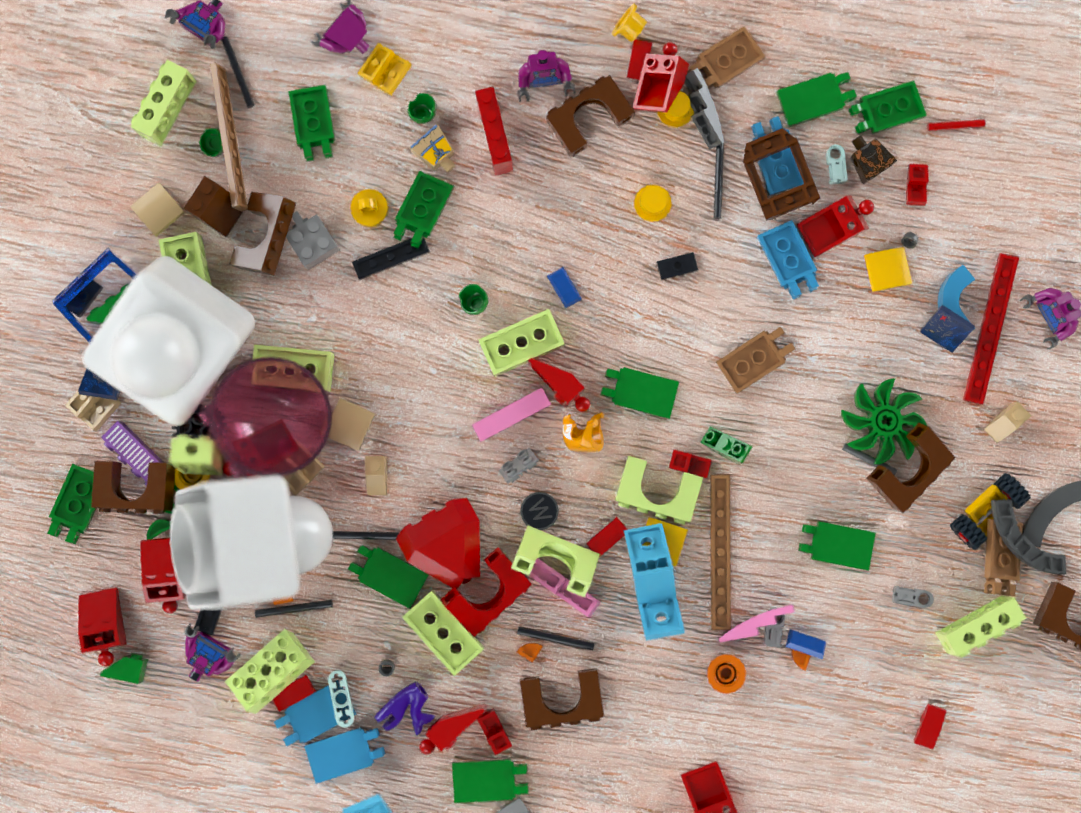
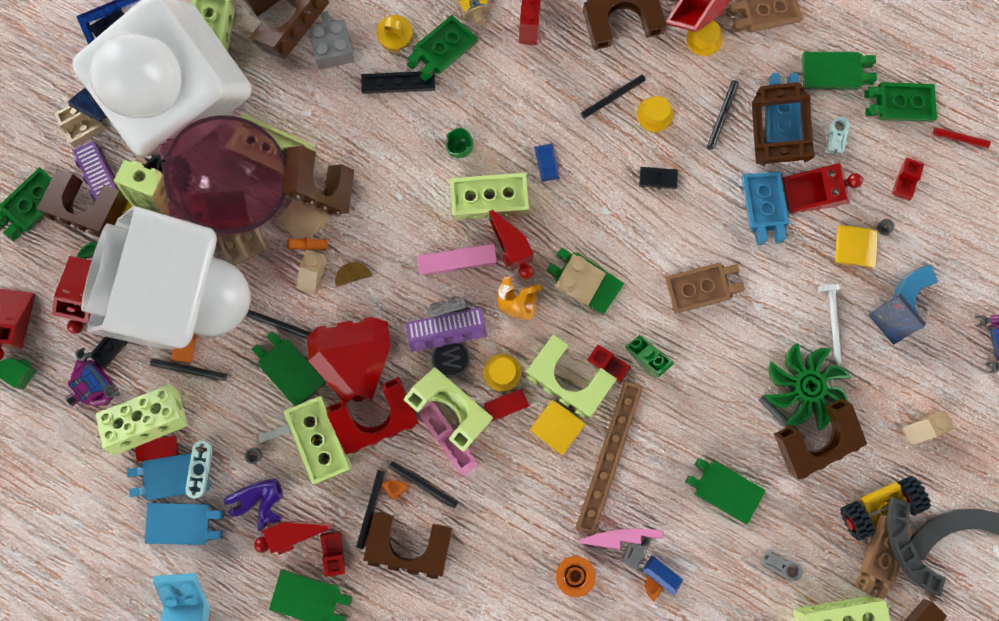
camera: 15 degrees right, 5 degrees down
(340, 398) = (300, 185): none -> reddish brown arch
(362, 450) = (306, 243): none -> orange pin
(398, 639) = (274, 433): none -> white sticker
(414, 462) = (351, 273): none -> pearl gold tile
(514, 678) = (370, 509): none -> black bar
(526, 486) = (446, 329): none -> medium lavender brick
(592, 507) = (502, 372): none -> yellow piece
(605, 200) = (613, 96): none -> black bar
(636, 394) = (580, 280): none -> tan slope
(654, 581) = (535, 462): medium azure bracket -> none
(705, 114) = (731, 45): dark grey slope -> none
(870, 159) = (872, 140): torso -> none
(878, 320) = (832, 288): none -> white piece
(991, 329) = (937, 336): red tile -> none

